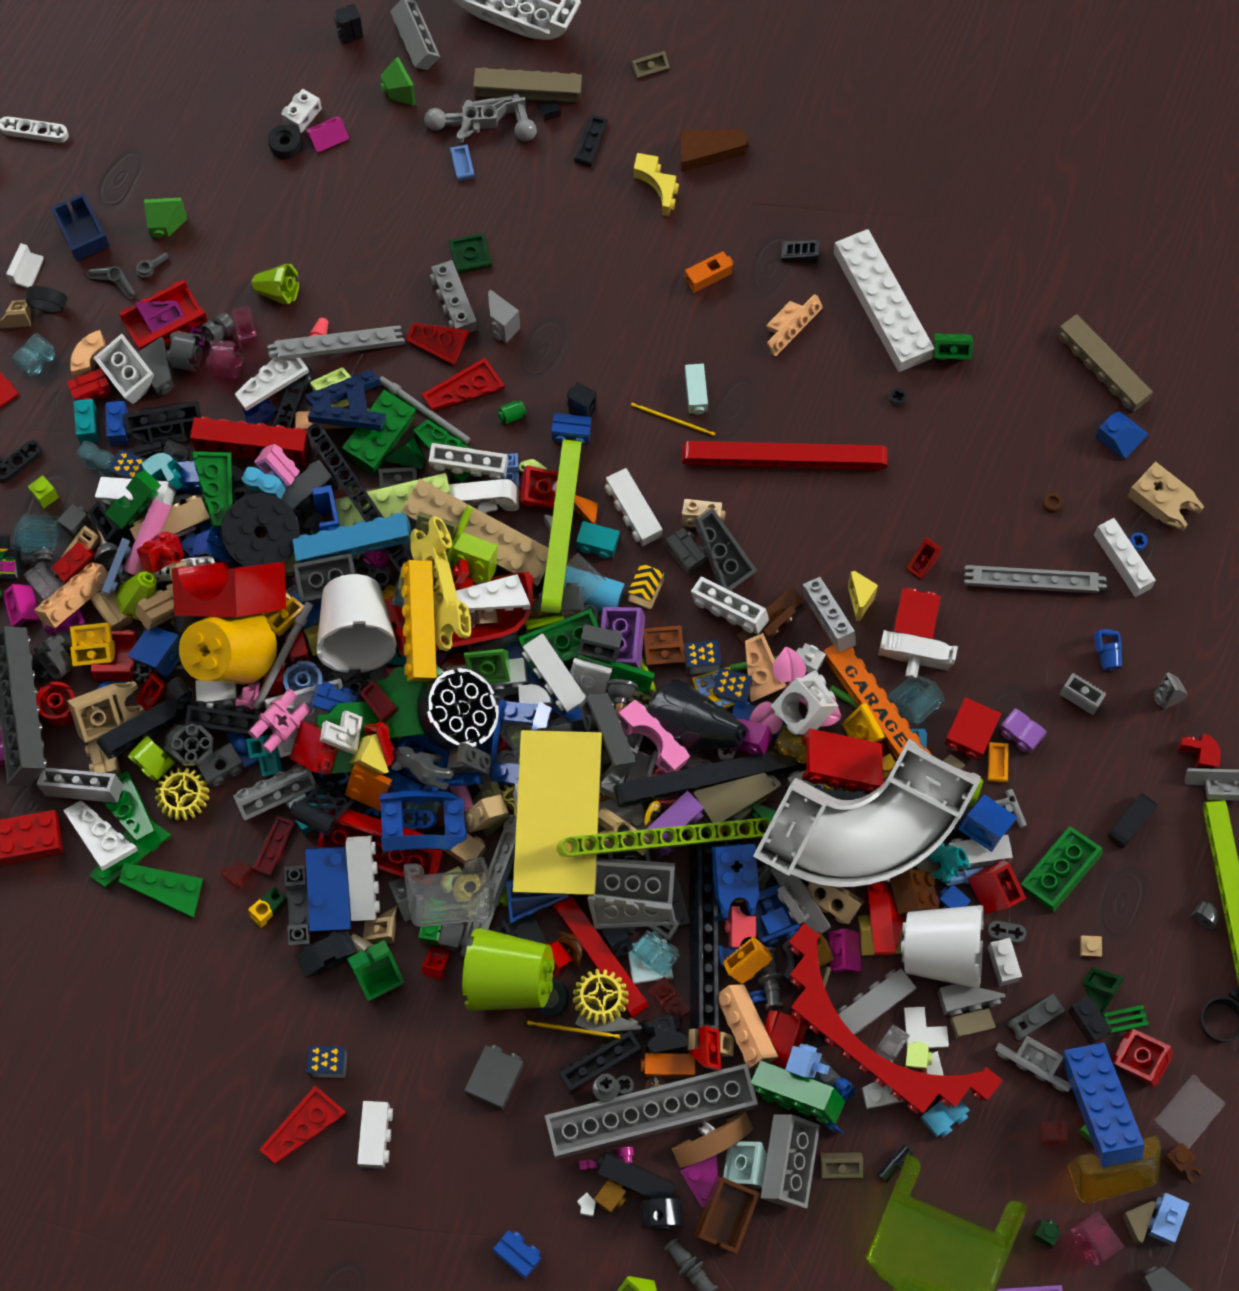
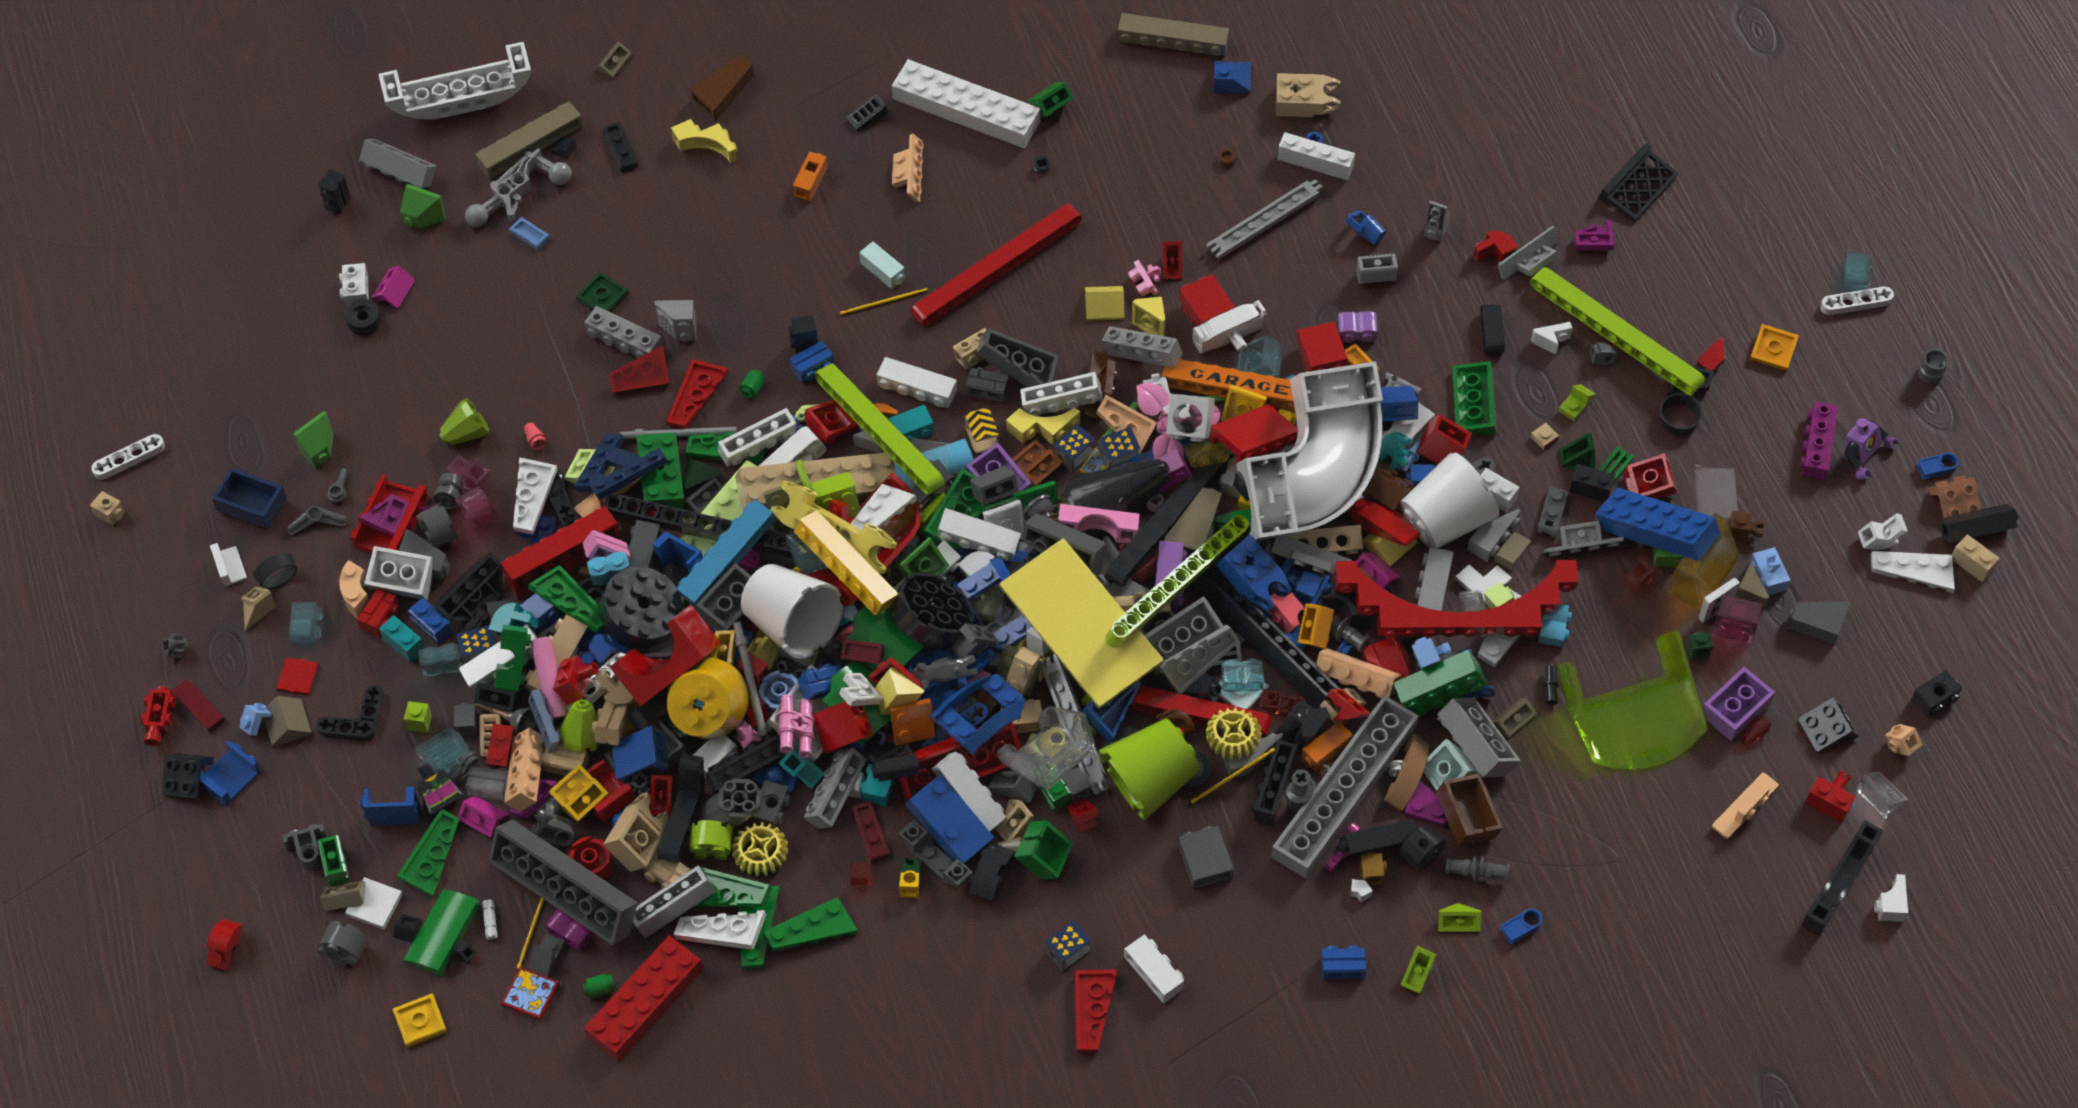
camera: 40 degrees left, 10 degrees down
(336, 343) = (559, 432): light grey hinge -> none
(652, 813) = (1150, 578): piece -> none
(702, 627) = (1024, 425): none -> light yellow arch
(840, 552) = (1104, 303): none -> light yellow slope
(893, 556) = (1147, 285): none -> bright pink hips
(1090, 1207) = (1712, 601): none -> white tile
(1146, 939) = (1576, 402): none -> lime slope
(1171, 863) = (1548, 336): none -> white slope

